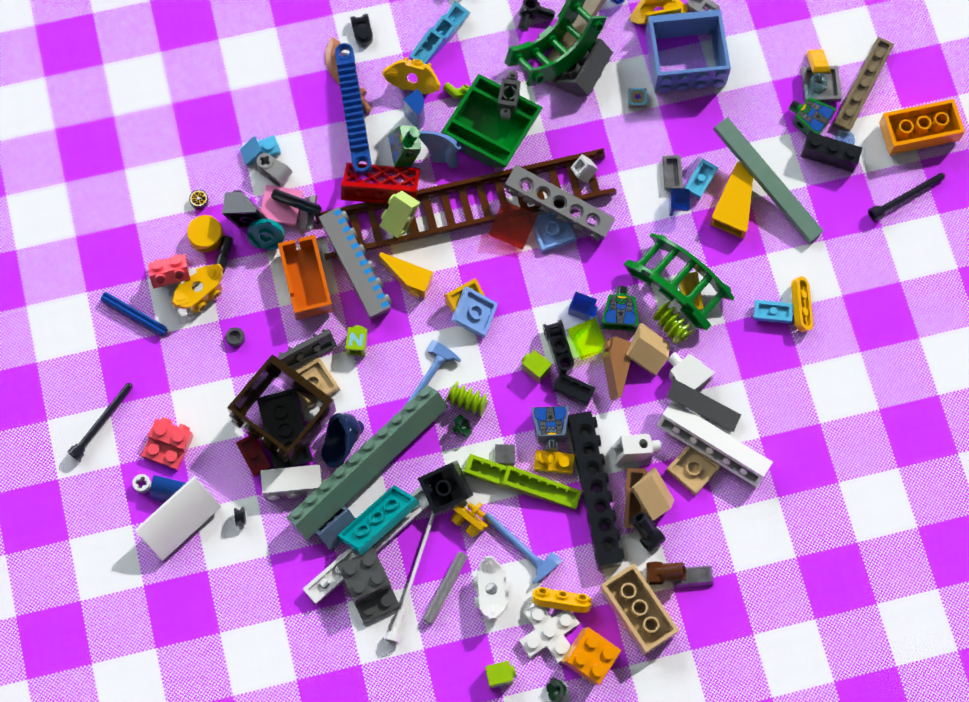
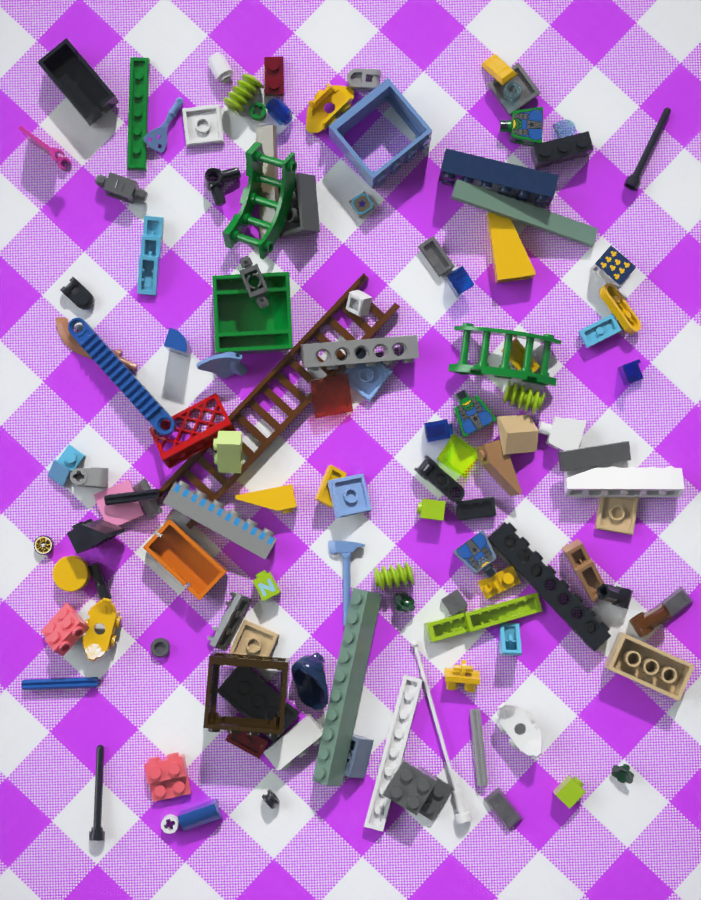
camera: 30 degrees left, 15 degrees up
(178, 518) = (222, 838): white slope -> none
(265, 234) = (125, 542): teal tile -> none
(377, 520) = (389, 731): teal tile -> none
(404, 145) = (190, 383): green torso -> none
(426, 79) = (168, 310): yellow piece -> none
(431, 655) = (503, 808): none -> flat silver tile
(445, 487) = (426, 665): black slope -> none
(455, 92) = (201, 301): lime arm -> none
(531, 513) = (509, 639): none -> medium azure slope
(543, 567) = (547, 677): medium blue piece -> none
(548, 632) = (586, 728): white plate -> none
(561, 600) = (574, 703): yellow plate -> none
(591, 656) = (634, 730): light orange brick -> none
(634, 448) = (560, 530): white torso -> none
(653, 494) = (601, 561): tan slope -> none
(701, 178) = (464, 246): medium azure plate -> none
(772, 145) = (500, 177): none -> dark blue brick
(779, 360) = (630, 372): none -> clear blue panel
(816, 266) = (613, 267): none -> dark blue piece
(863, 84) = (549, 65): dark tan tile -> none
(921, 127) = (626, 76): light orange brick -> none

